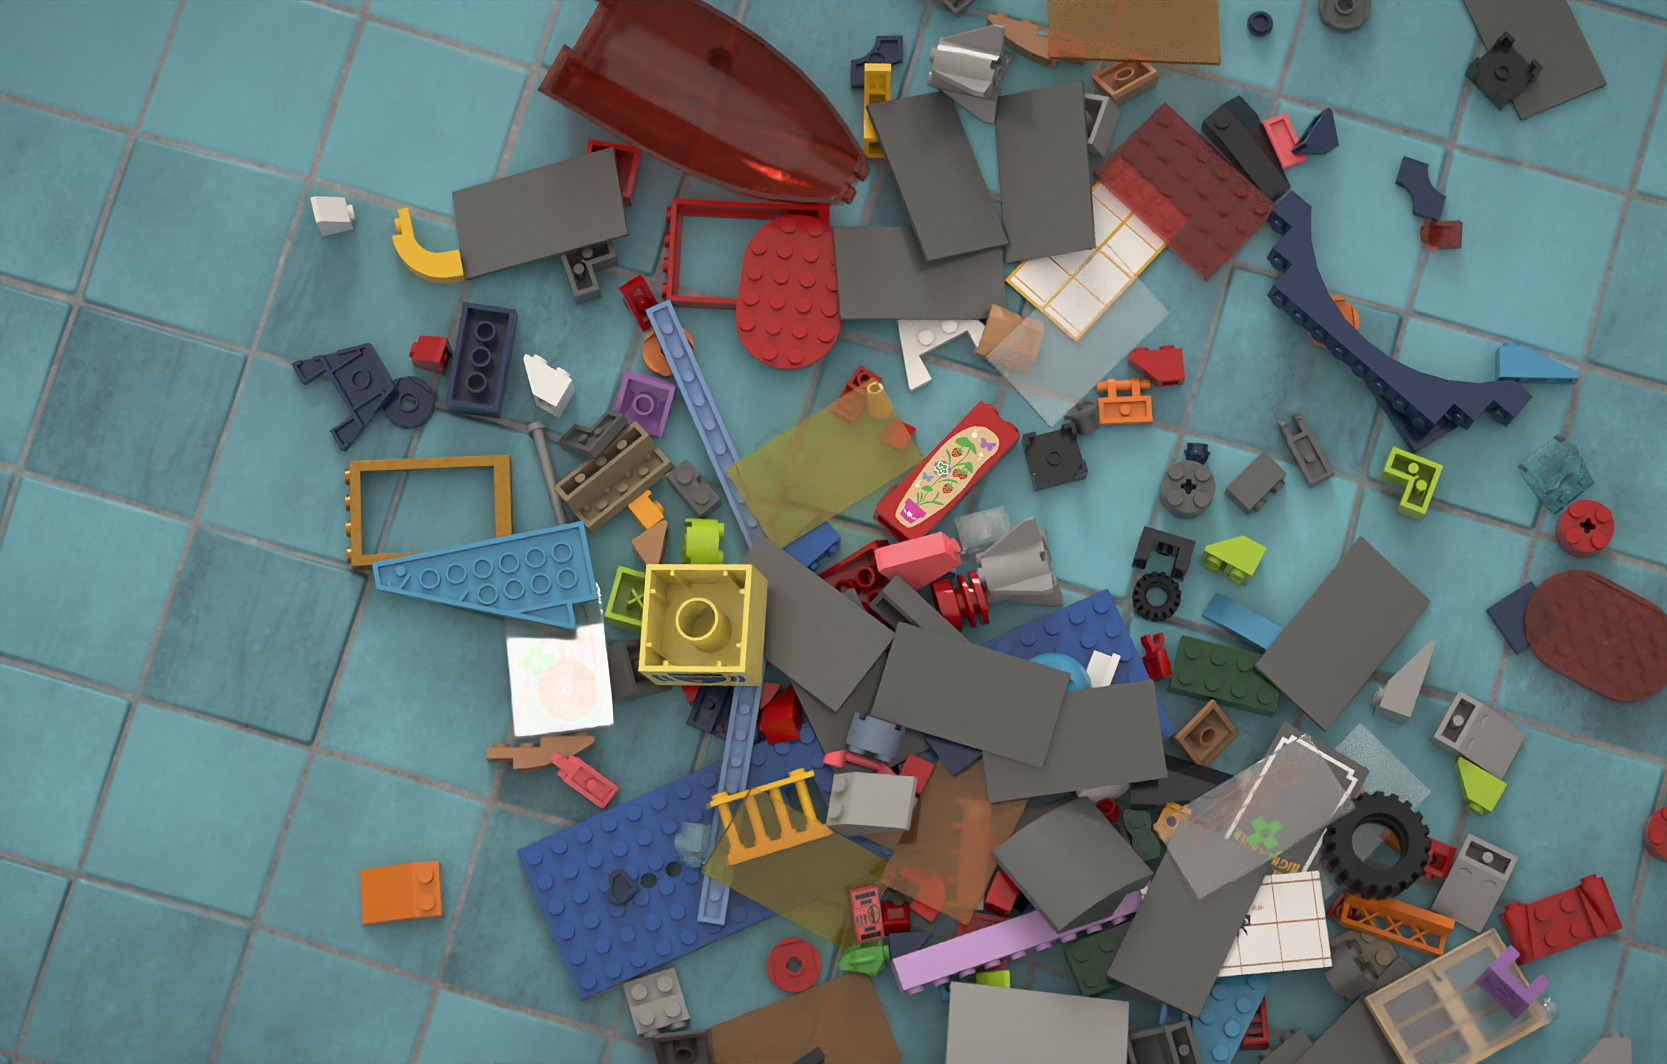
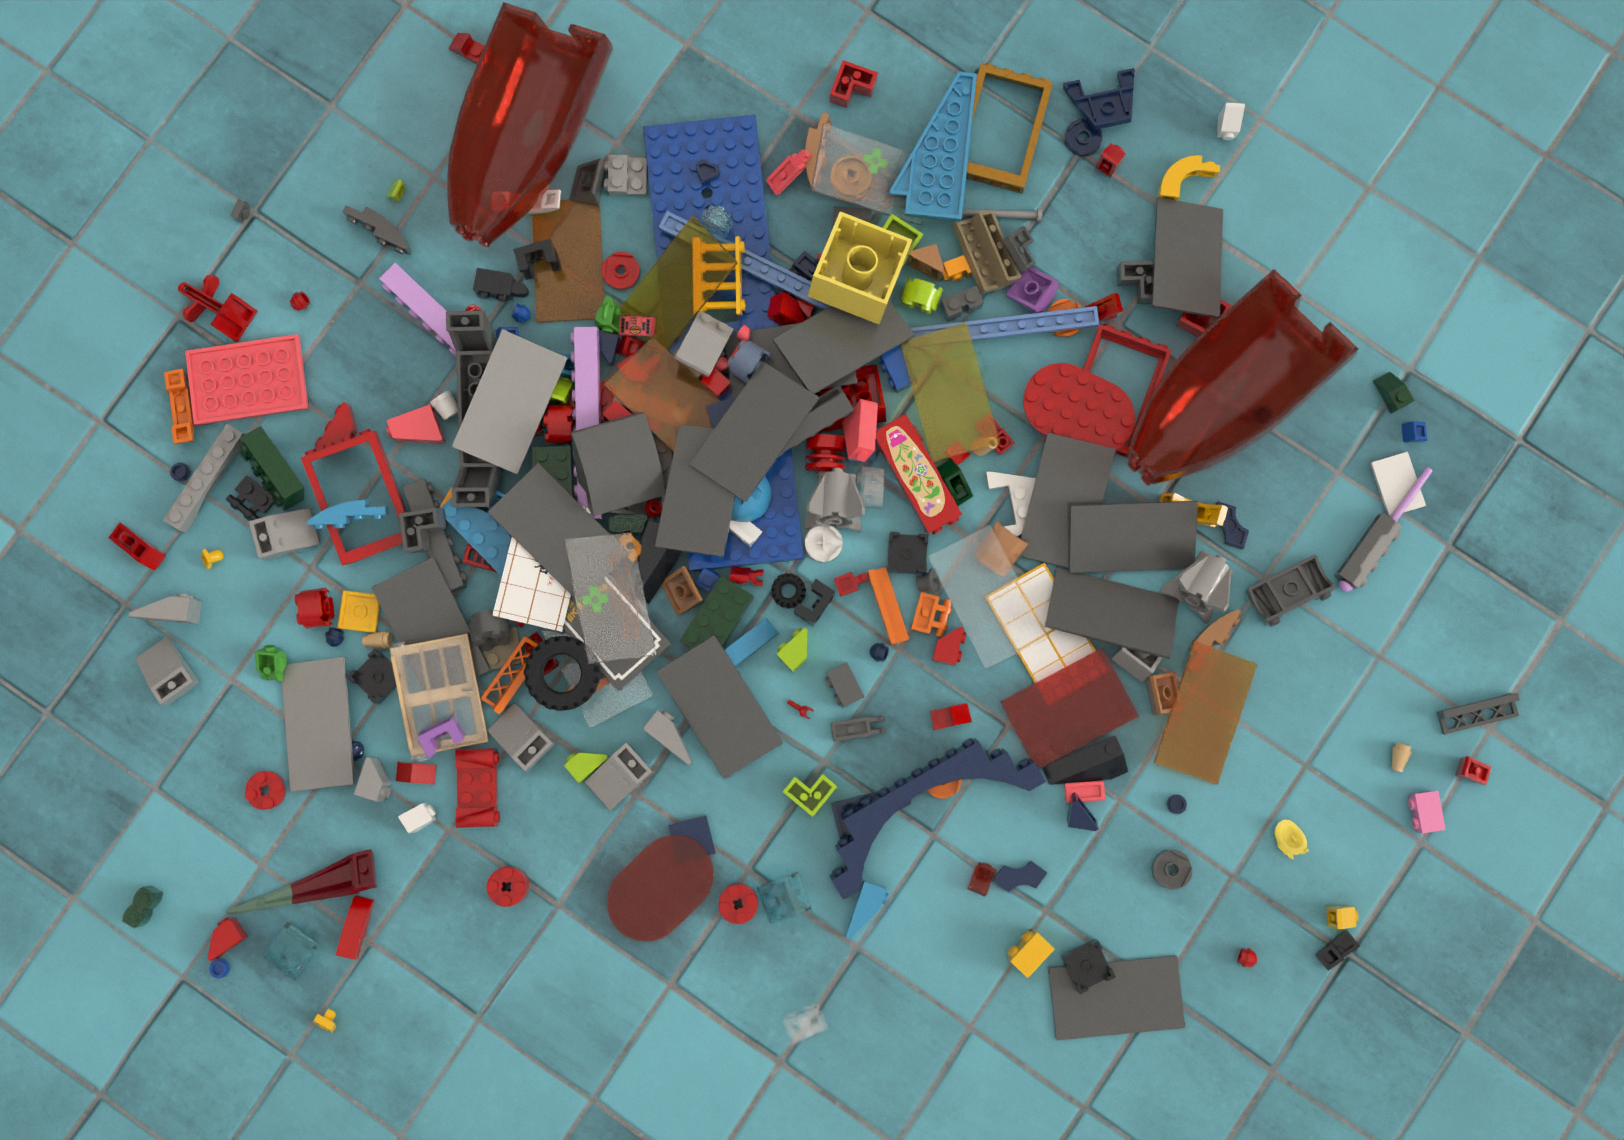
camera: 110 degrees right, 5 degrees up
(402, 893) = (752, 38): orange slope -> none
(425, 735) = (850, 79): none -> red brick
(481, 360) = (1096, 190): dark blue brick -> none
(550, 387) = (1063, 226): white slope -> none
(937, 425) = (955, 481): none -> dark green slope
(1038, 971) = (559, 423): none -> red brick
(1077, 571) = (823, 543): none -> white tile
(1120, 521) = (848, 583): none -> red plate
(1132, 461) = (888, 605): none -> orange fence
(1178, 706) = (707, 579): none -> blue plate
(1199, 481) = (849, 626): dark grey brick -> none
(1247, 337) = (950, 716): none -> red slope
(1306, 528) = (802, 709): none -> red hand
(1442, 859) = (547, 723): red brick -> none
(1514, 145) = (1029, 952): none -> yellow brick
(1572, 1011) = (416, 773): none -> slope
(1628, 982) = (418, 817): none -> white slope

